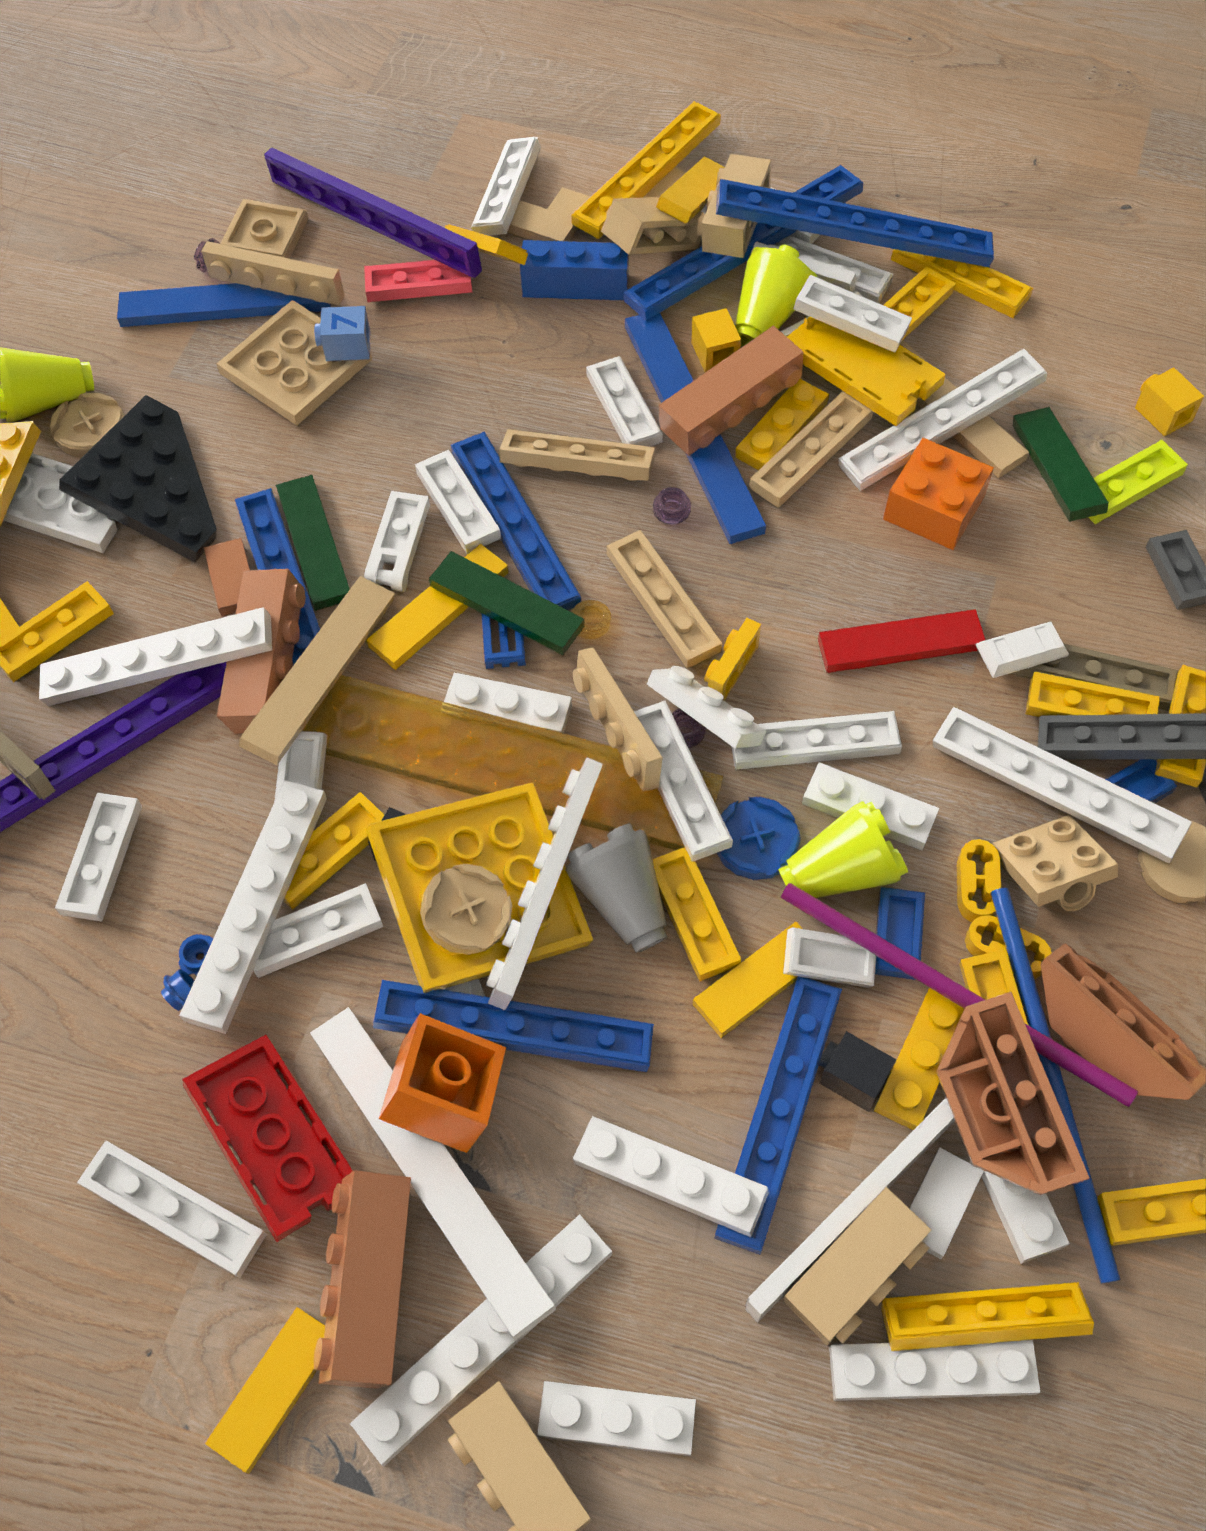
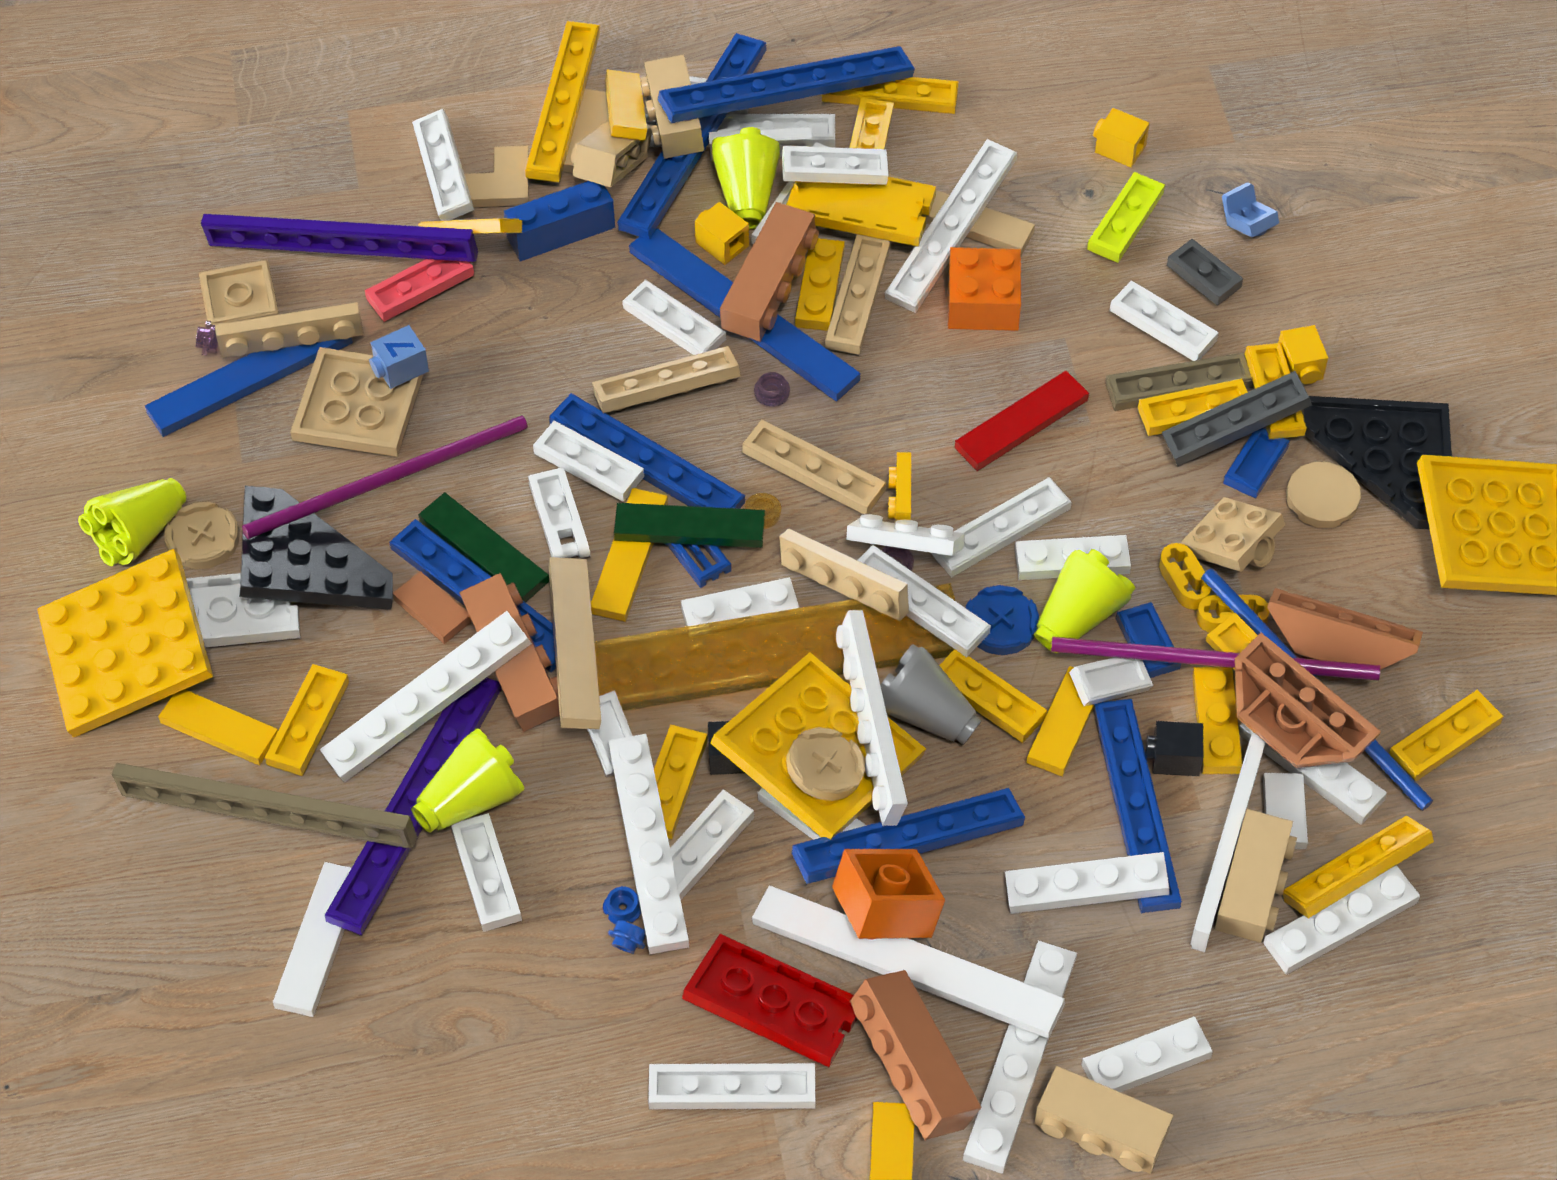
camera: 30 degrees left, 5 degrees down
(129, 761) = (467, 784): none -> neon yellow cone
(263, 437) = (384, 477): none -> magenta piece
(1022, 649) = (1120, 386): white tile -> none
(1060, 464) = (1065, 224): dark green tile -> none
(1062, 785) = (1205, 476): white plate -> none
(1109, 603) = (1163, 321): none -> white plate

